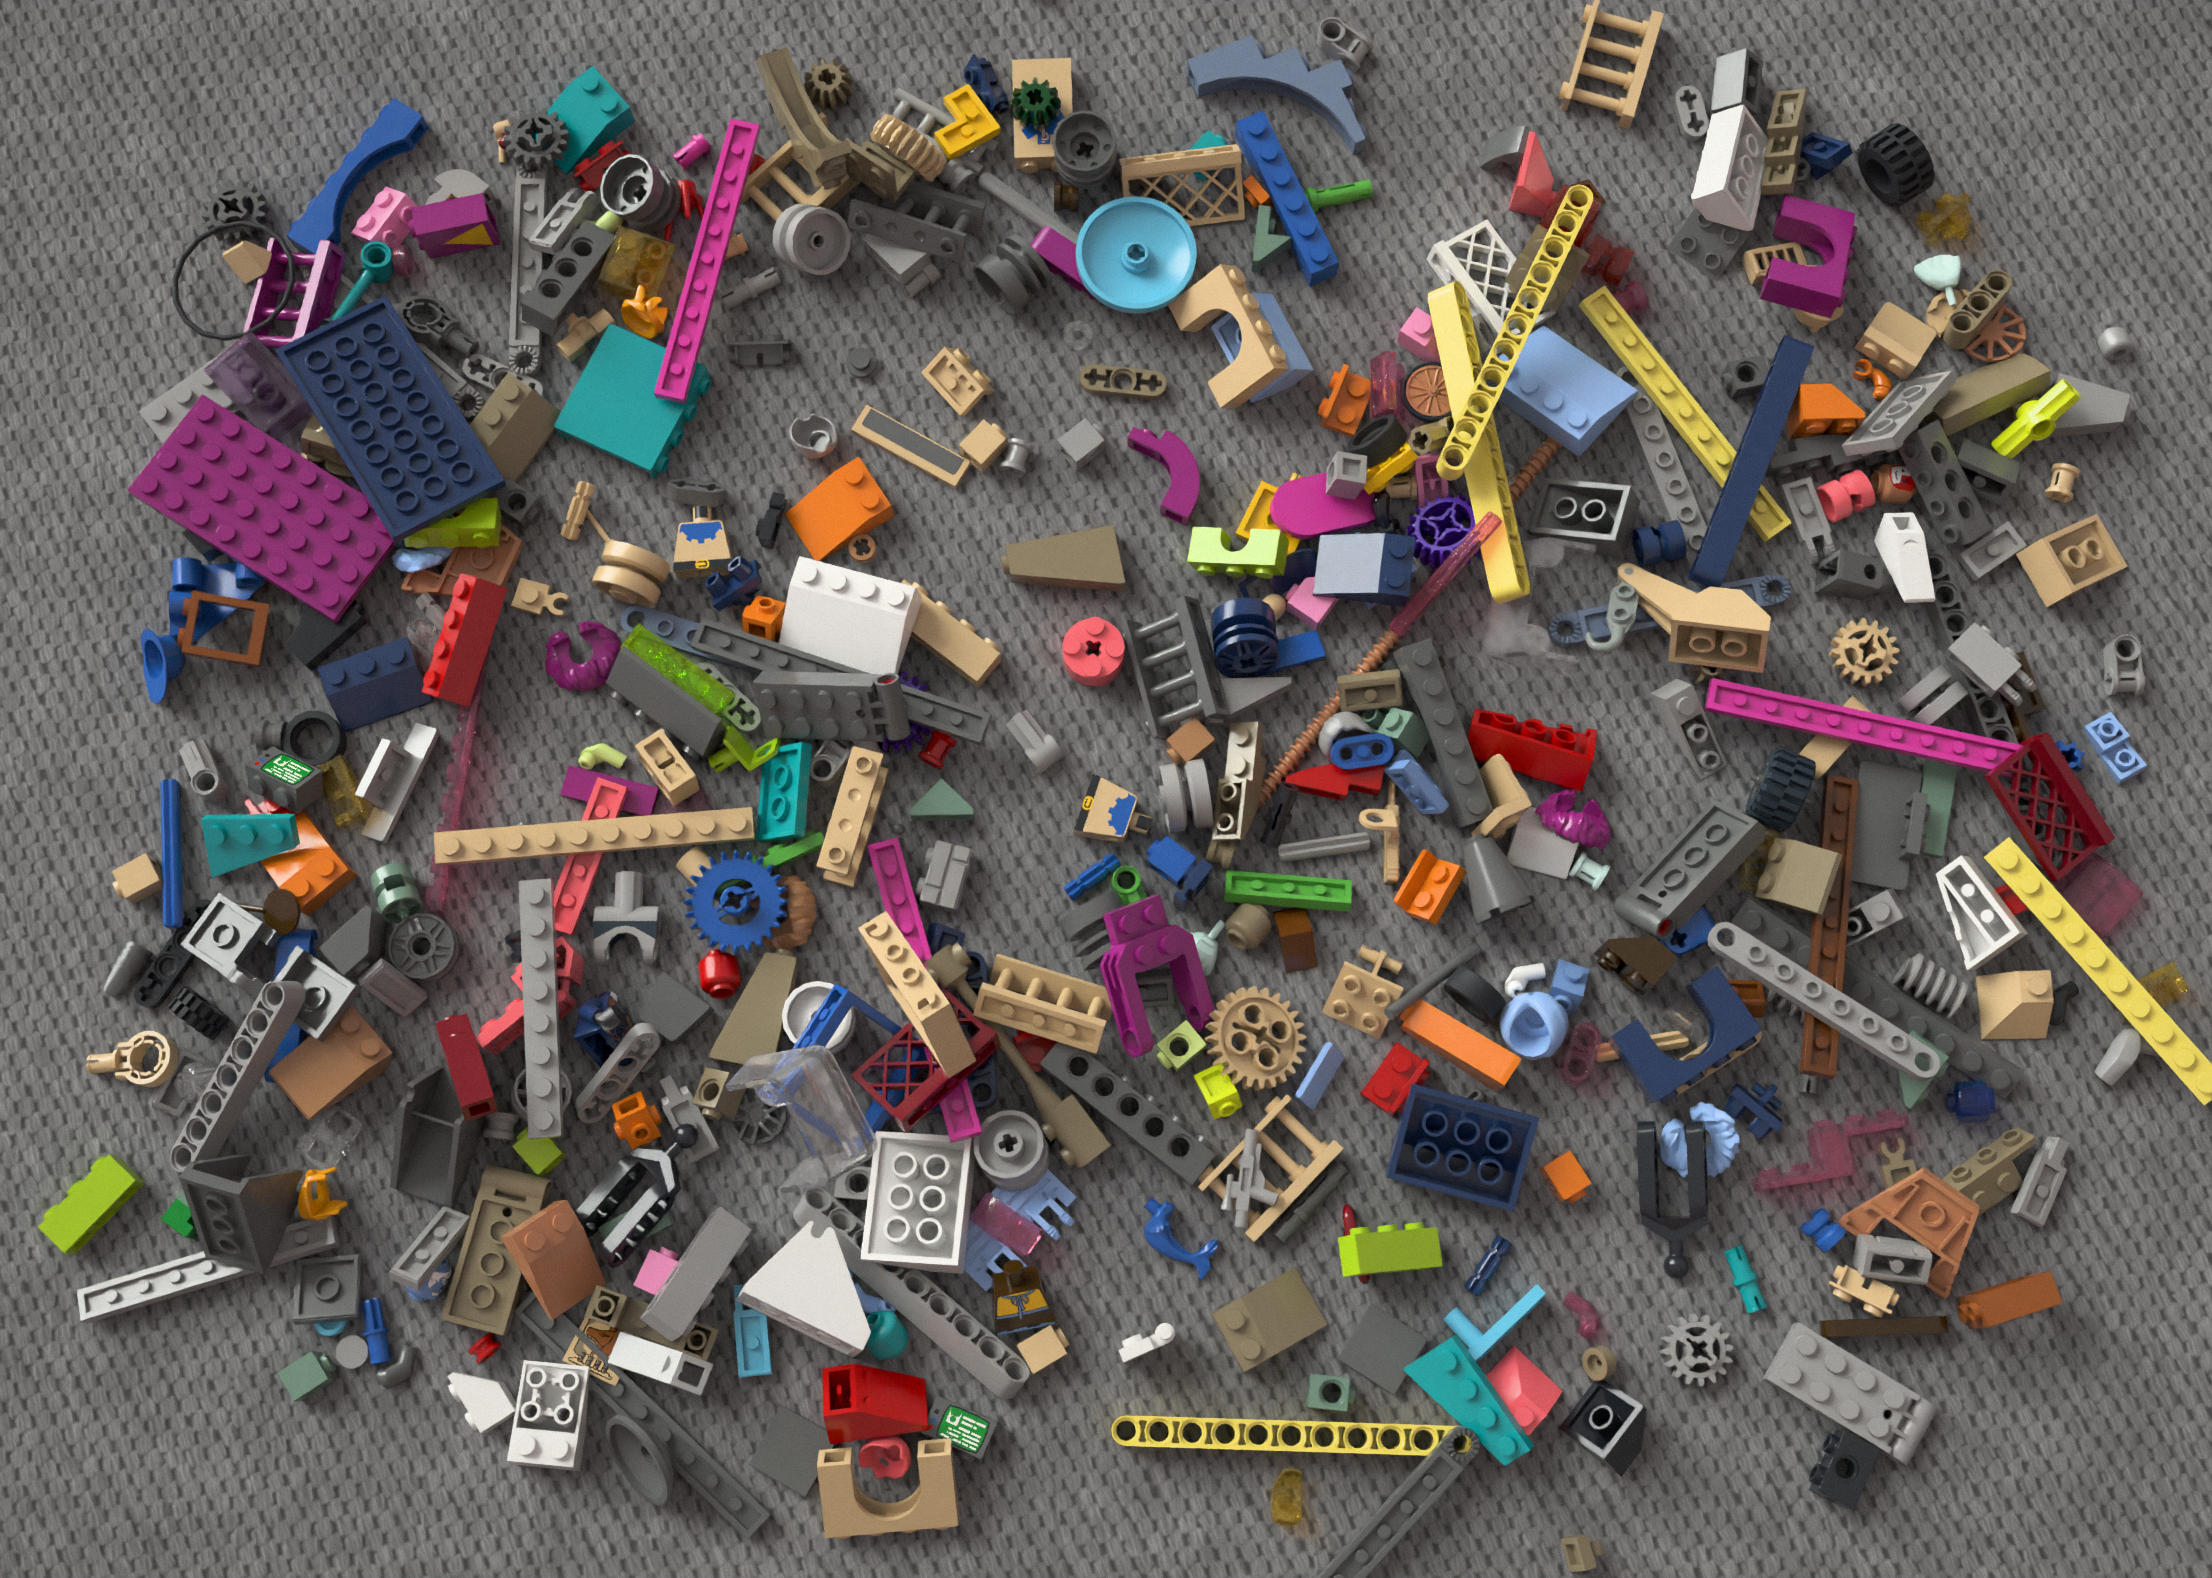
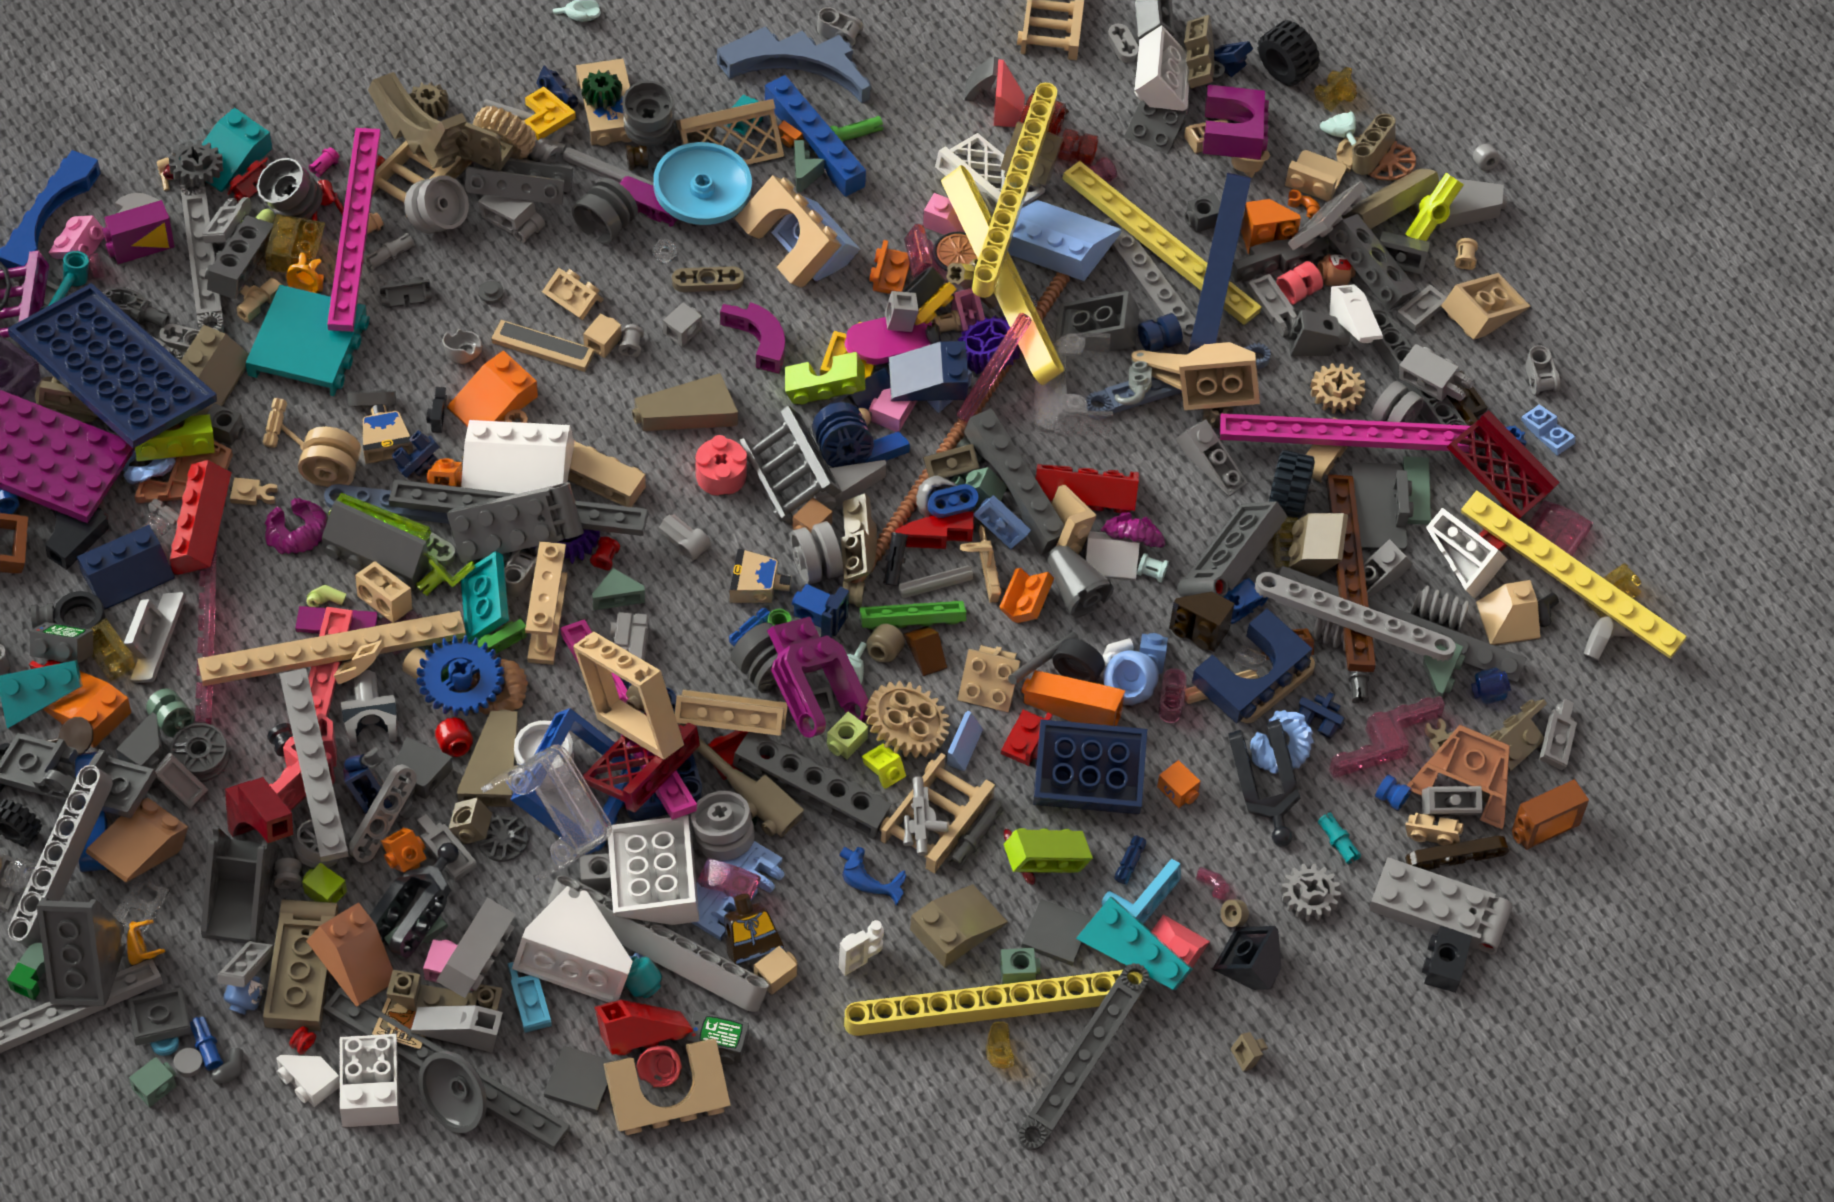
camera: 15 degrees left, 20 degrees down
(622, 864) = (360, 662): none -> tan slope

